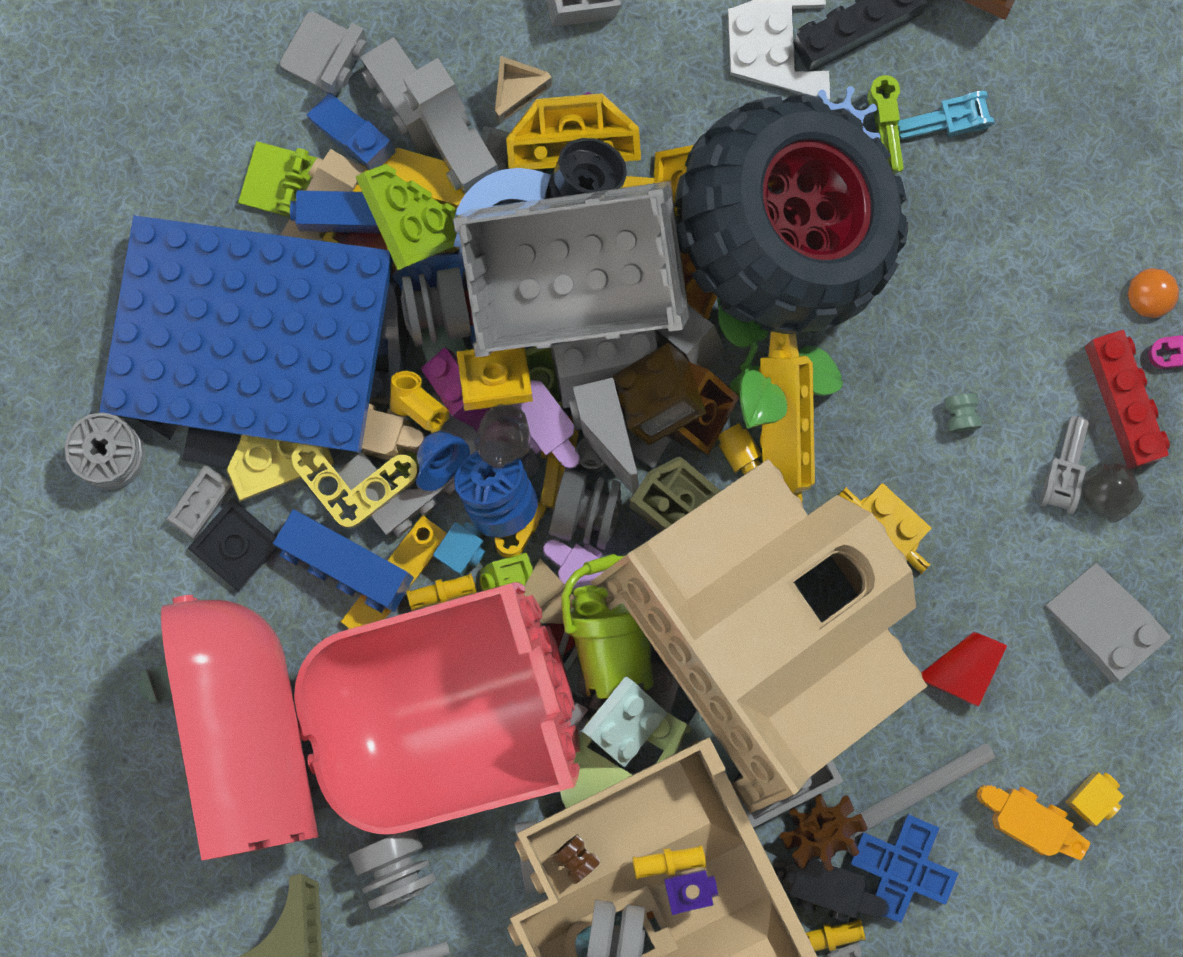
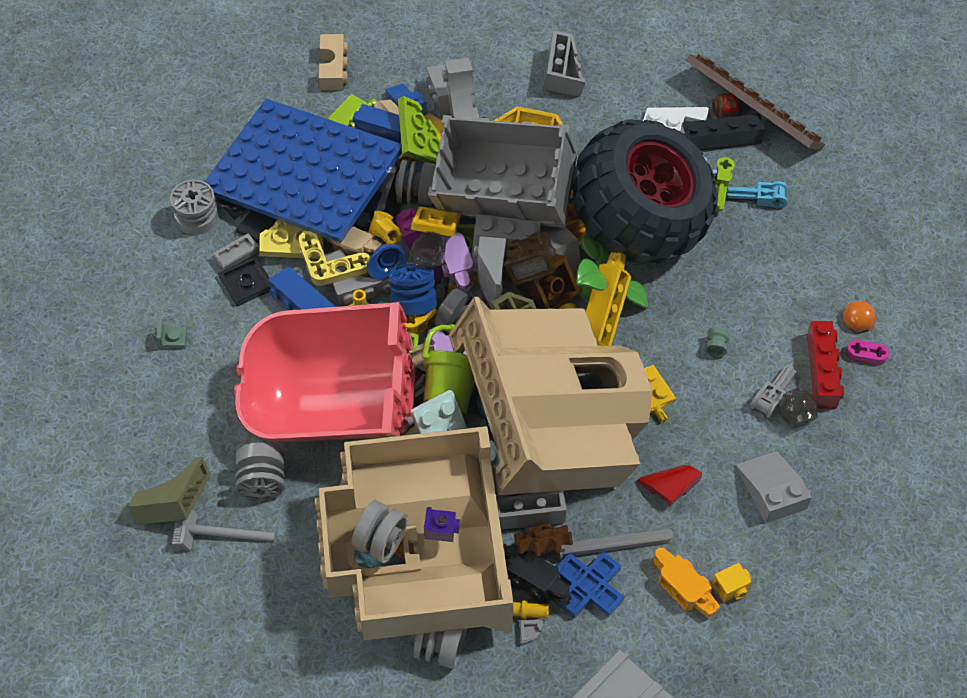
camera: 20 degrees right, 25 degrees down
(194, 64) = (332, 74): none -> tan arch
(236, 727) = (196, 349): coral cylinder -> none
(324, 52) = (408, 64): light grey bracket -> none
(518, 86) = (508, 100): tan slope -> none
(576, 859) = (376, 484): reddish brown wheel -> none
(589, 600) = (438, 342): lime plate -> none
(669, 862) = (422, 502): yellow pin -> none

